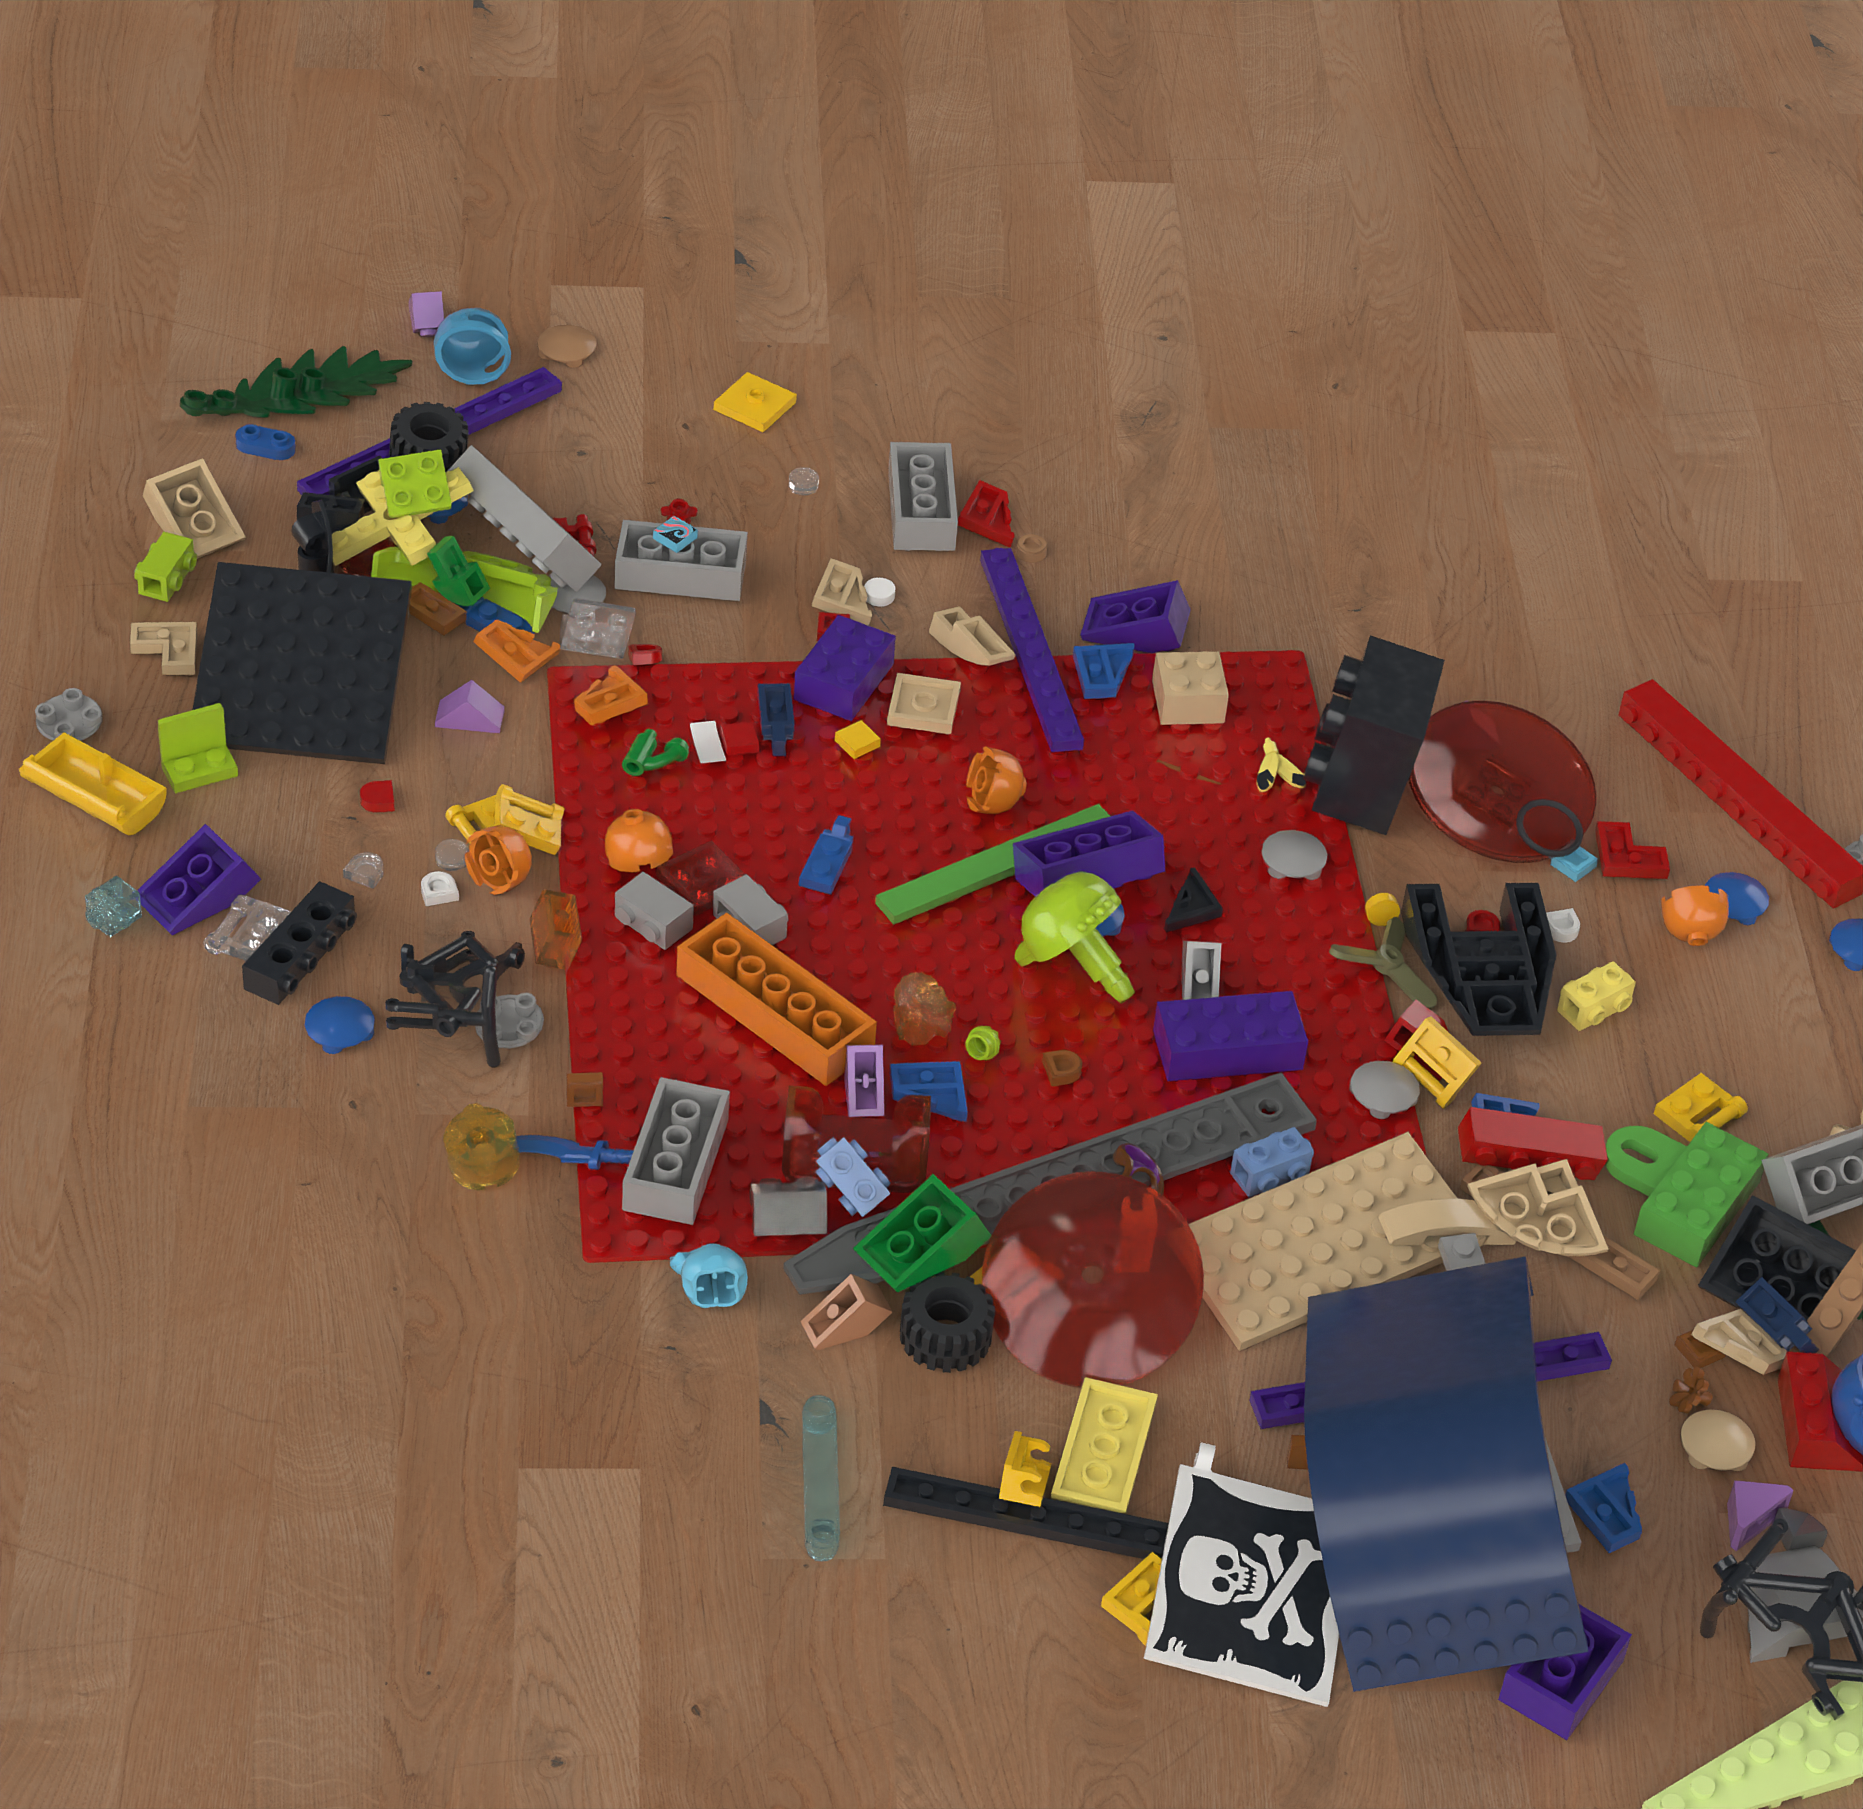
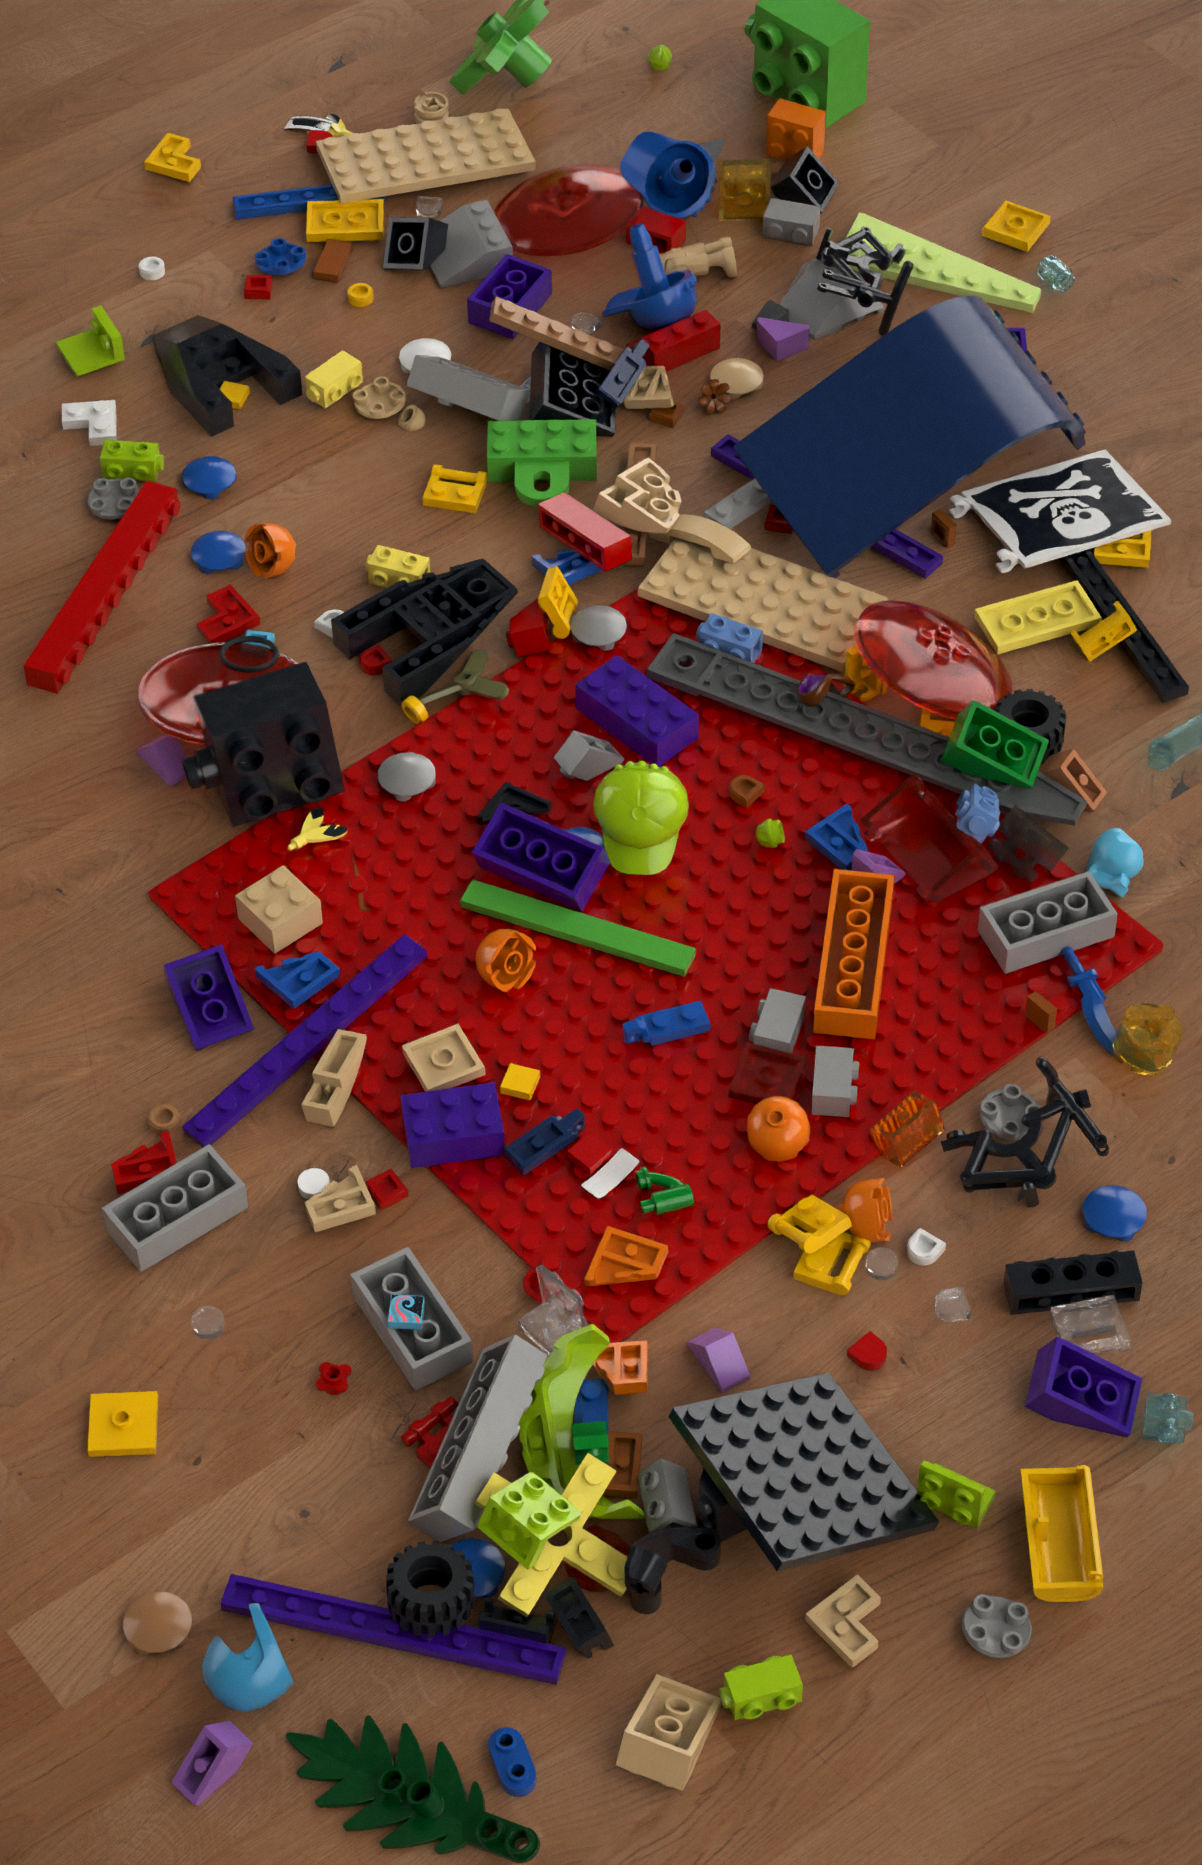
camera: 120 degrees left, 5 degrees up
(921, 1009) = (782, 870): clear orange hair -> none

